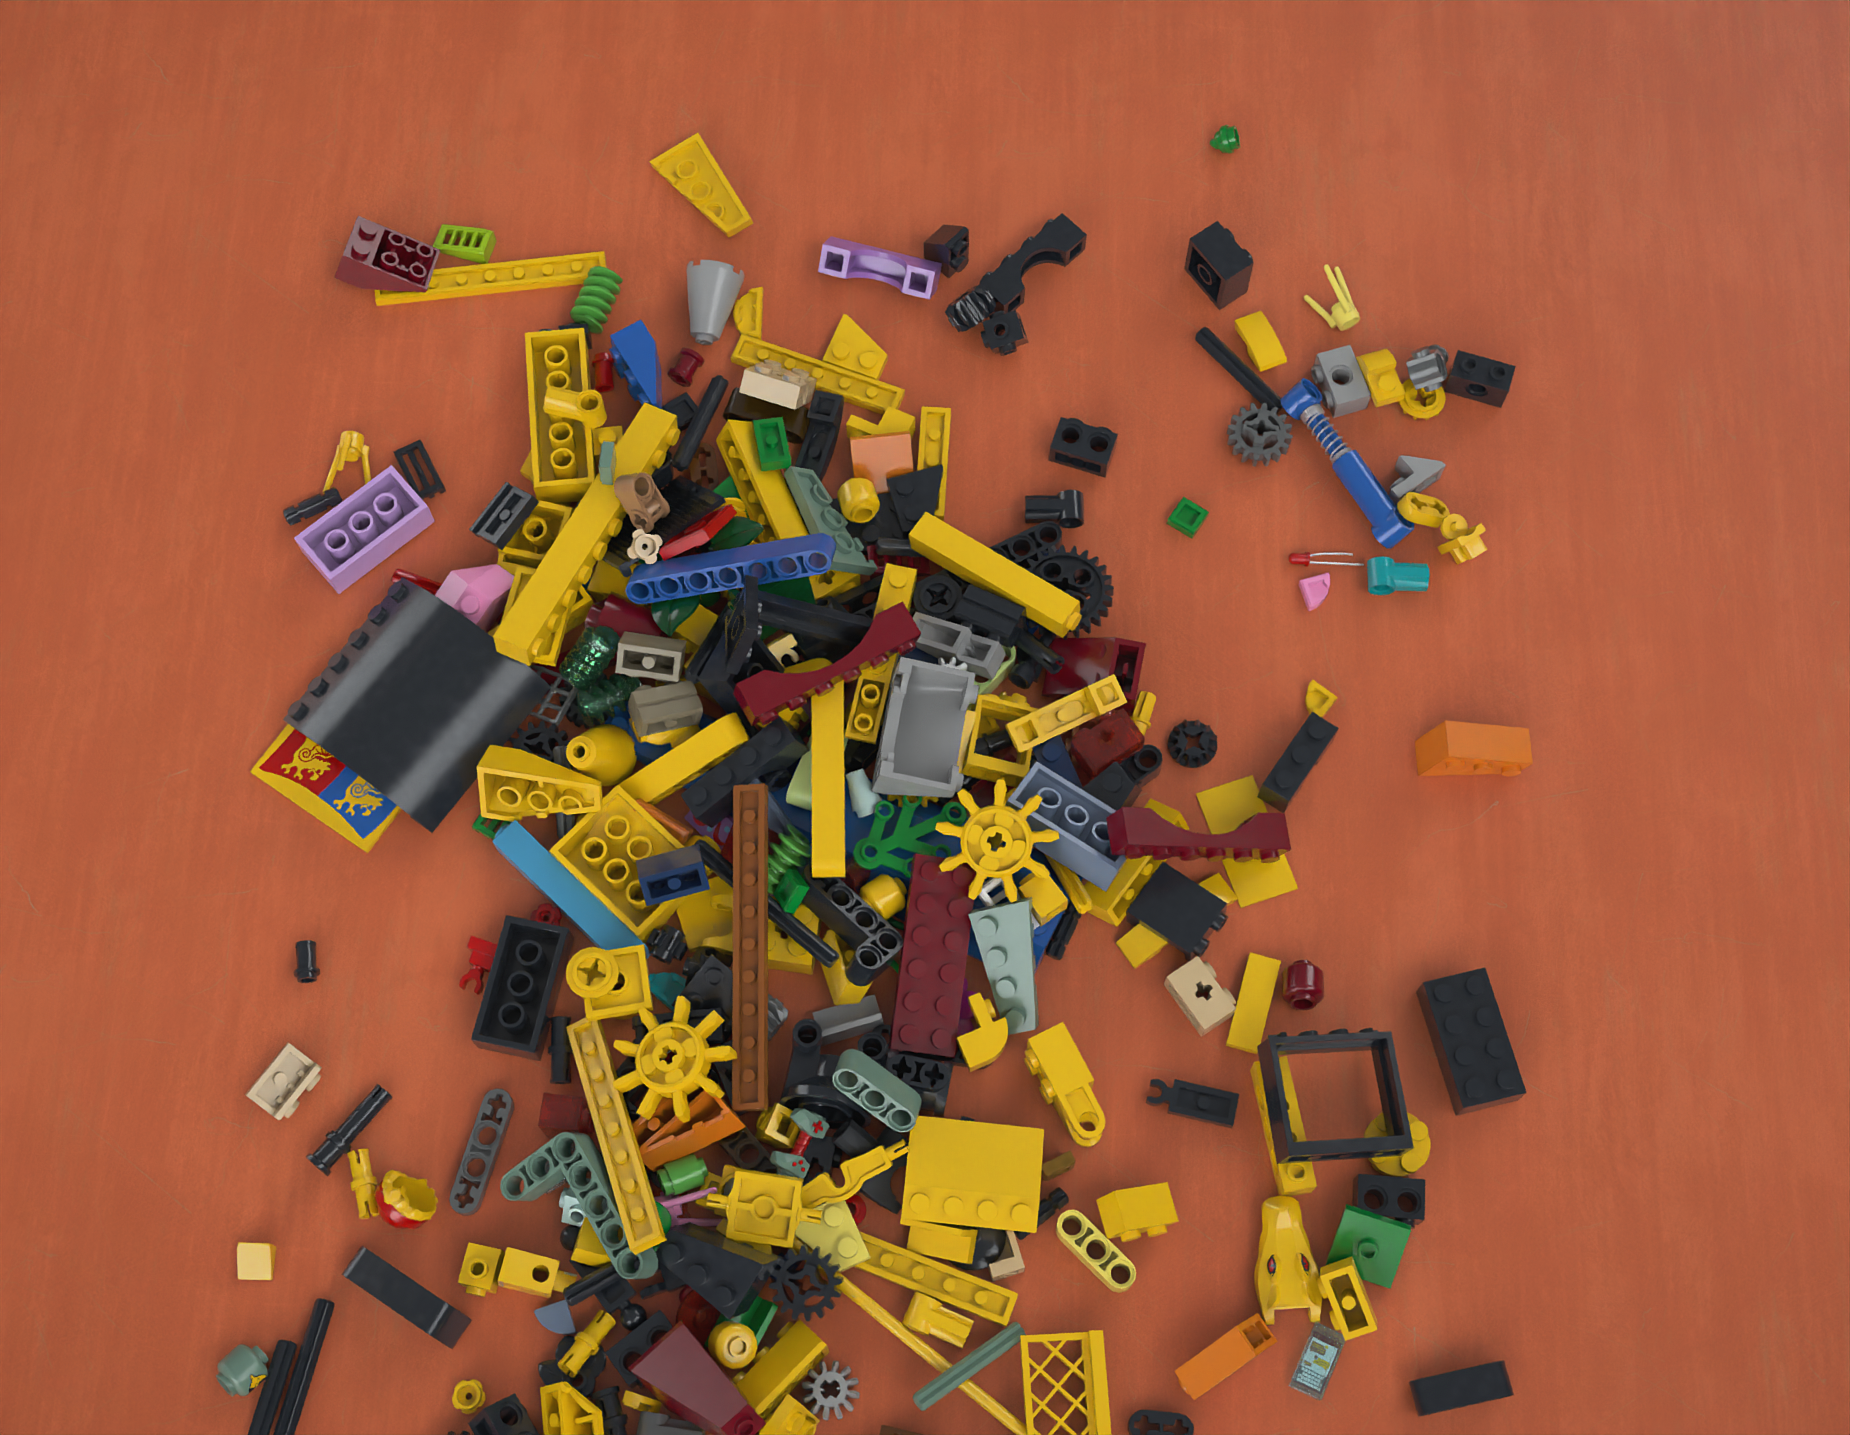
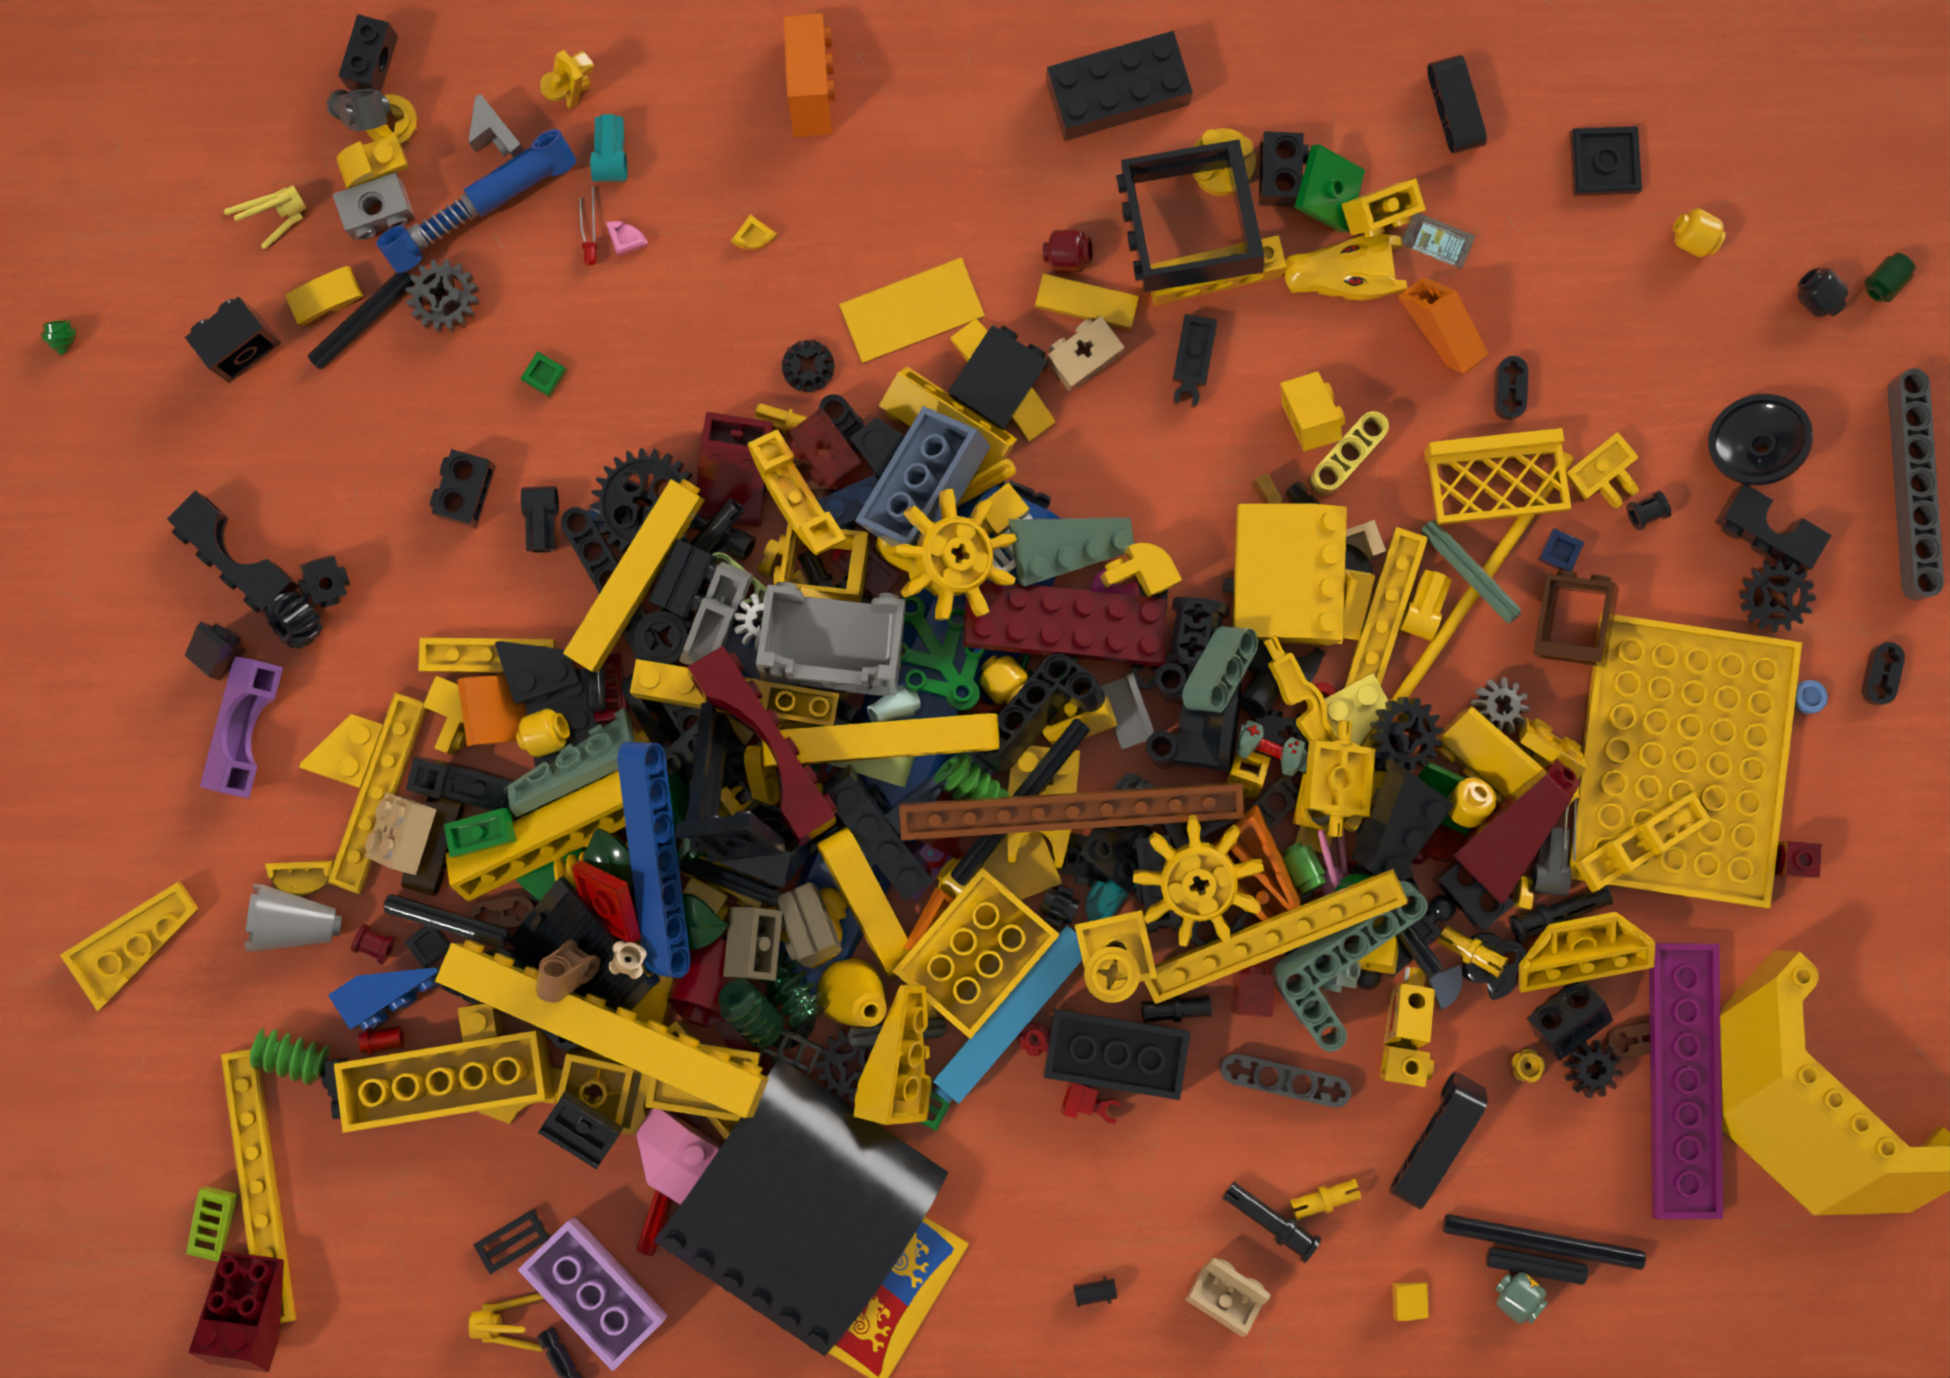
camera: 95 degrees left, 15 degrees up
(405, 1200) = (1344, 1151): yellow hair -> none
(576, 405) = (440, 1063): yellow piece -> none
(607, 463) = (521, 1012): sand green tile -> none
(672, 874) = (998, 899): dark blue brick -> none
(791, 891) = (1009, 773): green tile -> none
(1065, 1082) = (1187, 484): yellow brick -> none
(1145, 833) = (934, 399): dark red arch -> none
(1297, 762) = (839, 258): black arch -> none
(1422, 509) = (532, 119): yellow beam -> none

